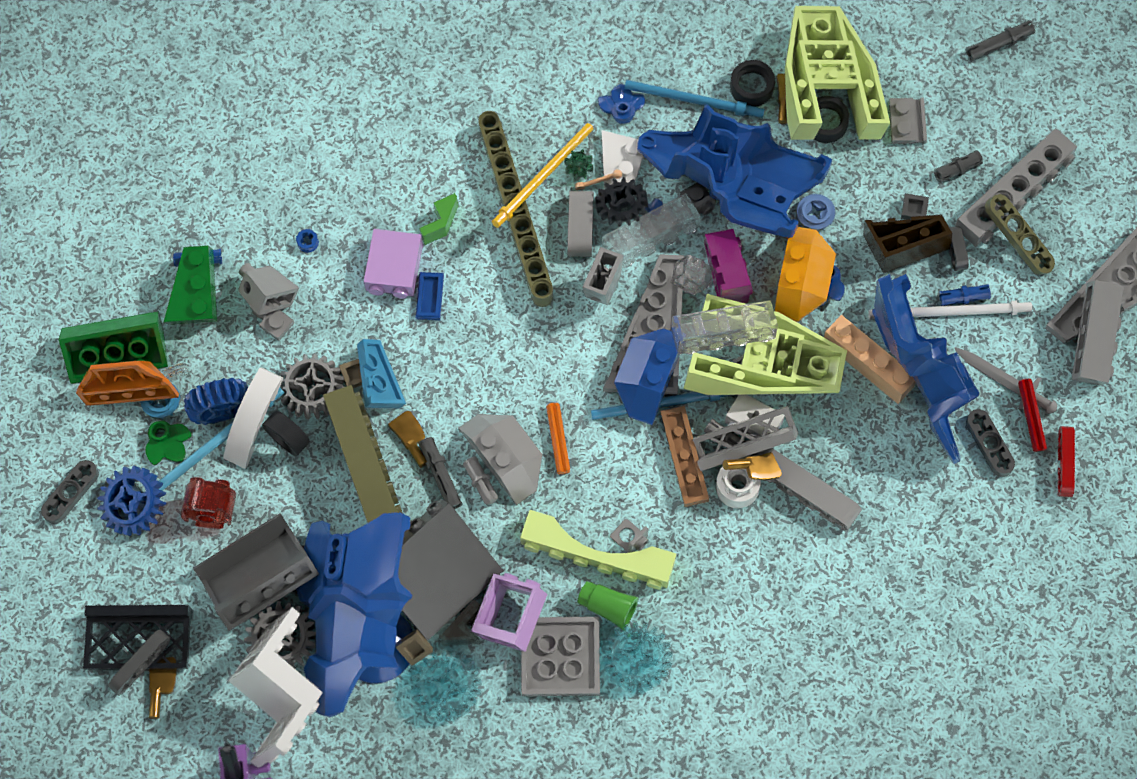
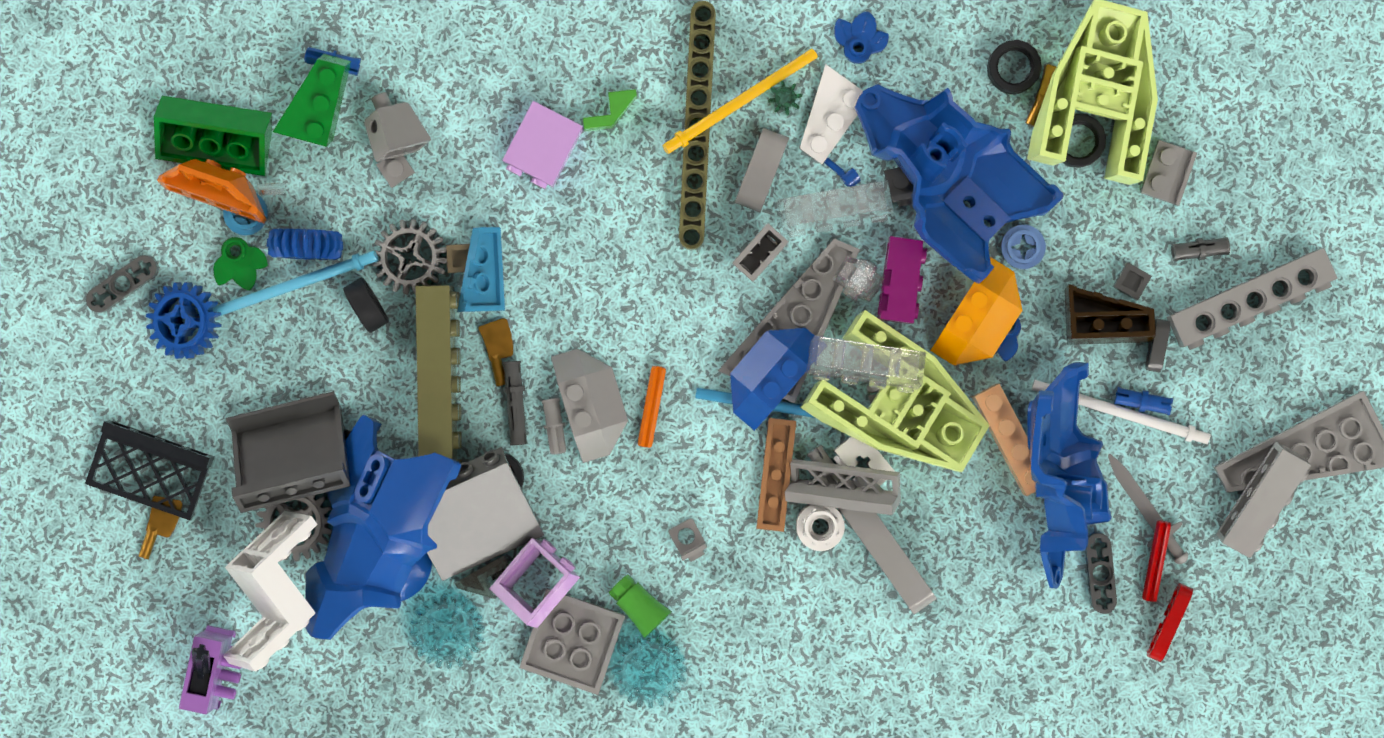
camera: 10 degrees right, 20 degrees up
(139, 662) = (143, 502): dark grey beam -> none
(208, 503) = (261, 354): clear red brick -> none
(250, 417) = (336, 275): white slope -> none
(307, 248) = (451, 77): blue bush -> none
(414, 647) = (426, 583): dark tan plate -> none
(429, 296) = (570, 194): blue tile -> none
(616, 174) = (822, 127): light nougat hinge -> none
(621, 202) = (805, 174): black gear -> none
(647, 565) = (695, 579): yellowish green arch -> none
(740, 108) = (988, 91): dark azure bar -> none
(757, 467) = (844, 524): pearl gold piece -> none
(1007, 37) = (1308, 113): dark grey pin -> none
(1023, 231) = (1232, 357): olive beam -> none

